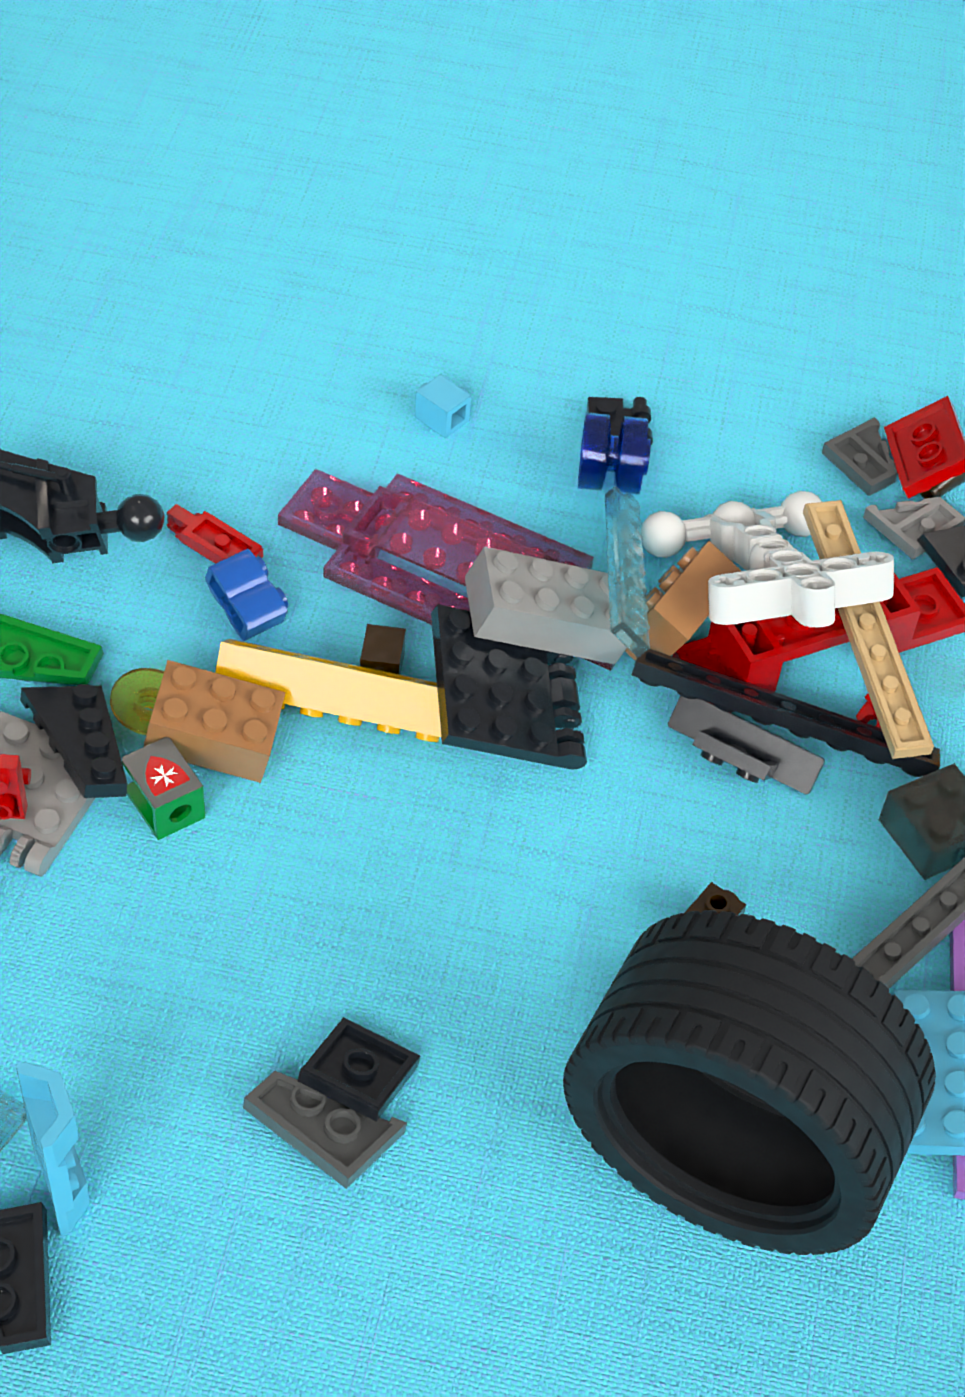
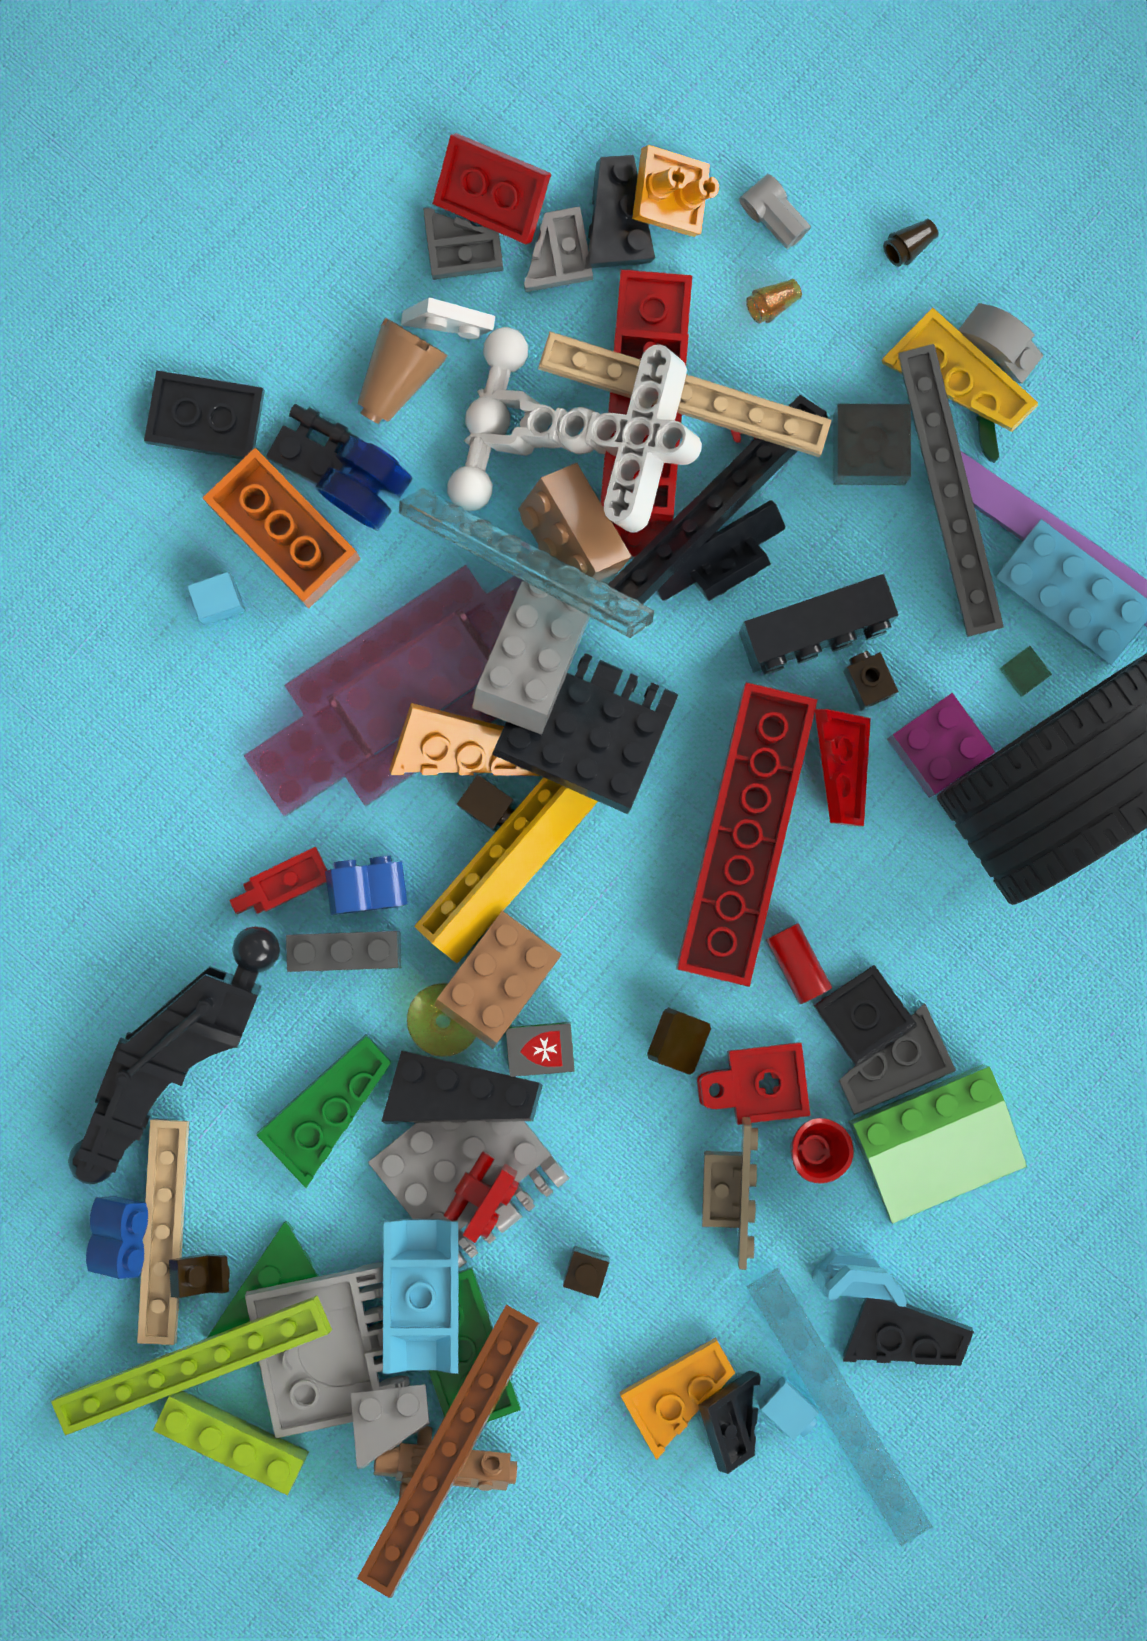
camera: 55 degrees left, 35 degrees up
(99, 1013) = (727, 1191): none -> dark tan bracket
(175, 603) = (343, 951): none -> dark grey brick
(184, 1075) = (821, 1150): none -> red helmet
(216, 980) = (741, 1087): none -> red plate
(236, 902) = (678, 1041): none -> dark brown piece
(256, 1206) = (939, 1142): none -> slope
(381, 985) = (799, 963): none -> red brick
(413, 584) = (449, 743): none -> light orange wing
(483, 870) = (746, 834): none -> red brick
(532, 421) = (281, 527): none -> orange brick
(592, 348) = (204, 415): none -> black plate
(608, 927) = (844, 764): none -> red wing
(725, 446) = (396, 371): none -> medium nougat cone
(735, 839) = (819, 623): none -> black brick
(796, 461) = (447, 317): none -> white wing

